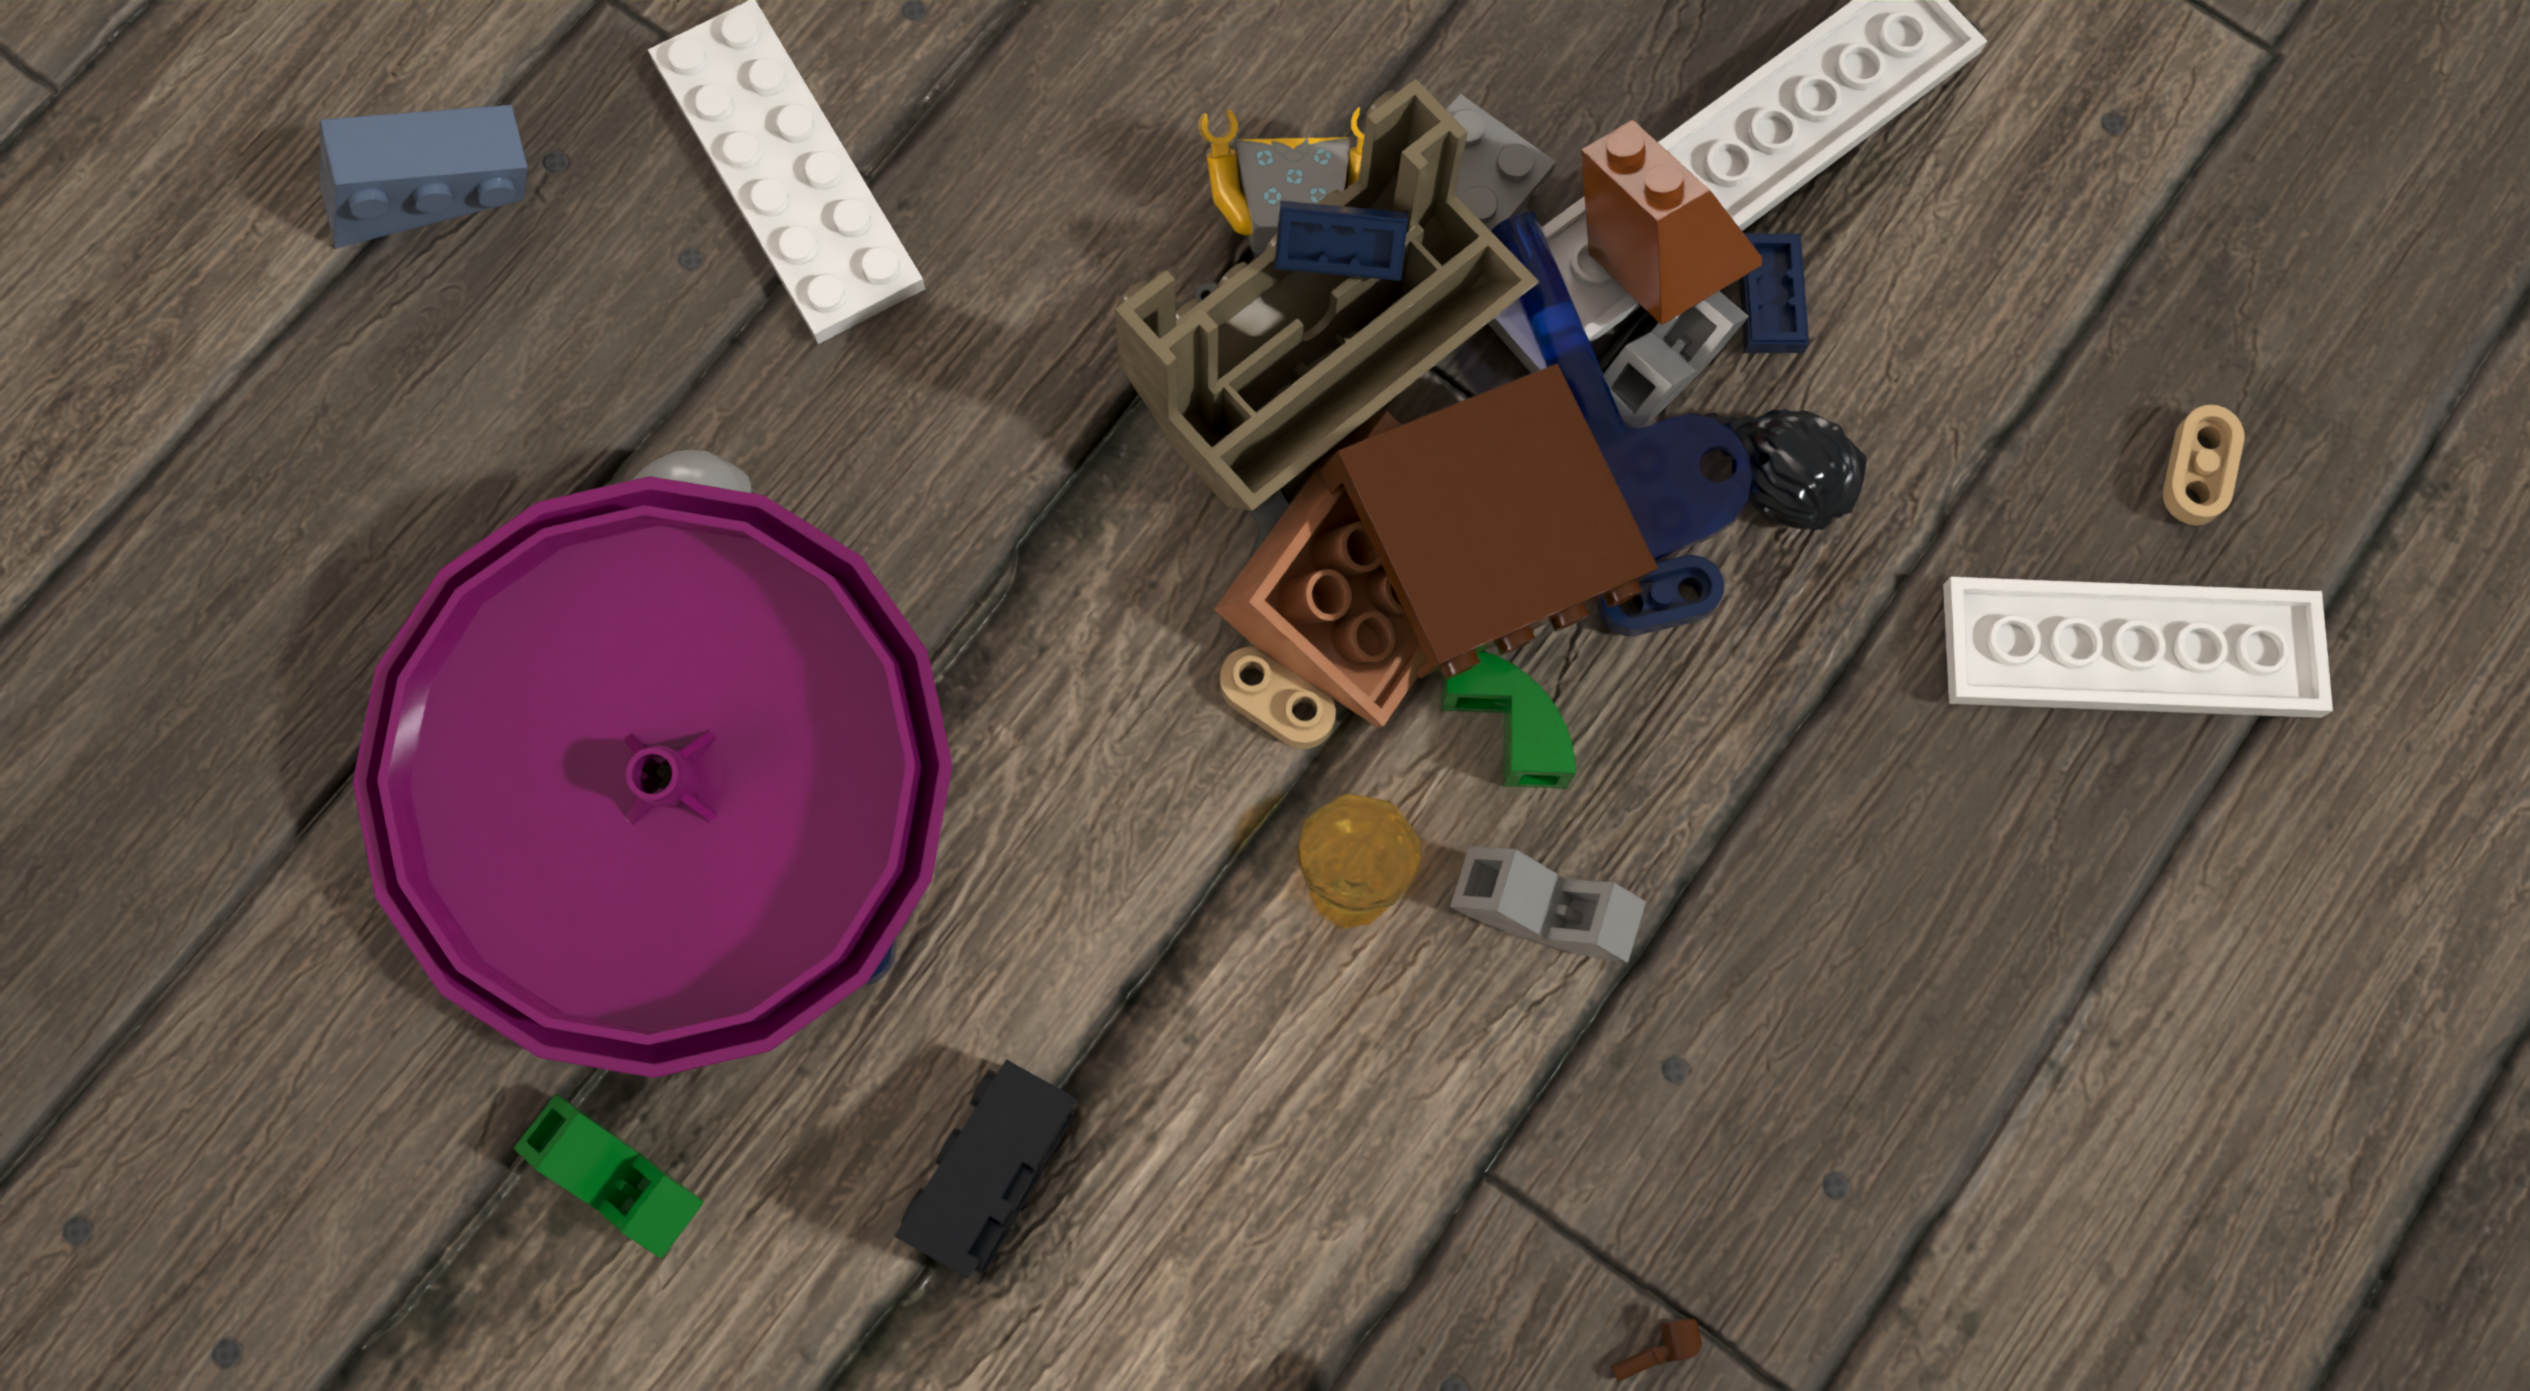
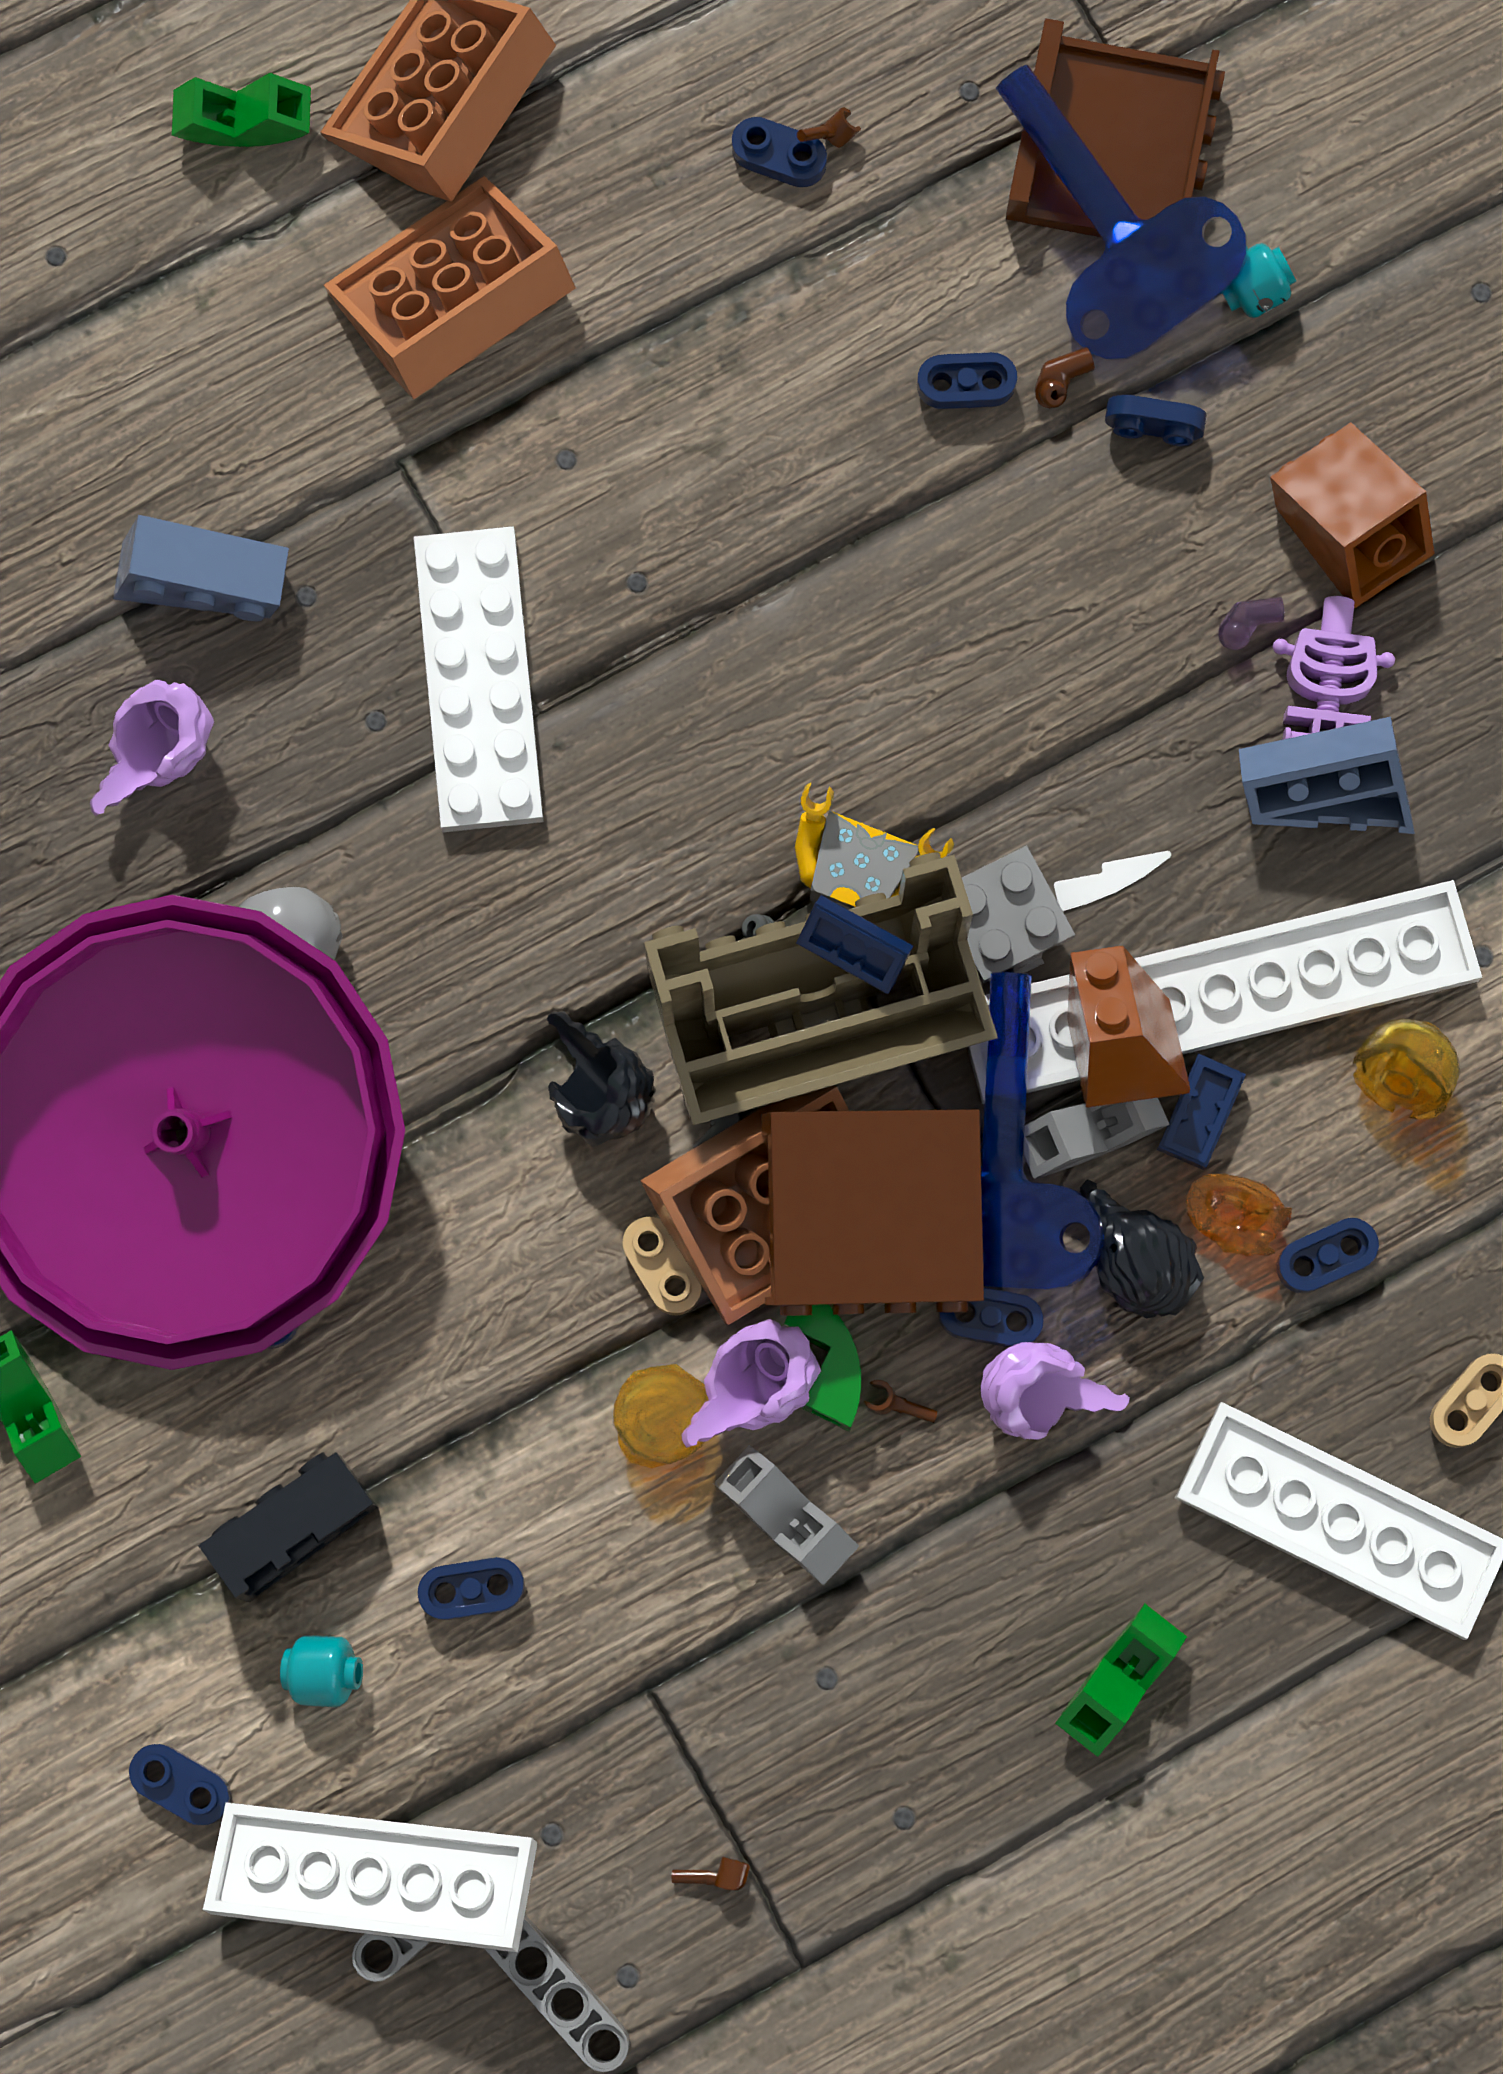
camera: 30 degrees right, 5 degrees up
(444, 364) = (154, 741): none -> lavender hair
(1101, 1324) = (320, 1671): none -> teal head
(1129, 527) = (608, 1089): none -> black hair
(1231, 1149) = (471, 1588): none -> dark blue plate
(1447, 768) = (755, 1381): none -> lavender hair
(1559, 103) = (1113, 878): none -> white sticker
(1606, 732) = (900, 1404): none -> reddish brown hand
(1746, 642) = (1034, 1384): none -> lavender hair
(1866, 379) = (1237, 1213): none -> clear orange hat
(1964, 157) = (1408, 1066): none -> clear yellow cylinder
(1973, 385) = (1325, 1255): none -> dark blue plate
(1993, 932) = (1121, 1680): none -> green brick

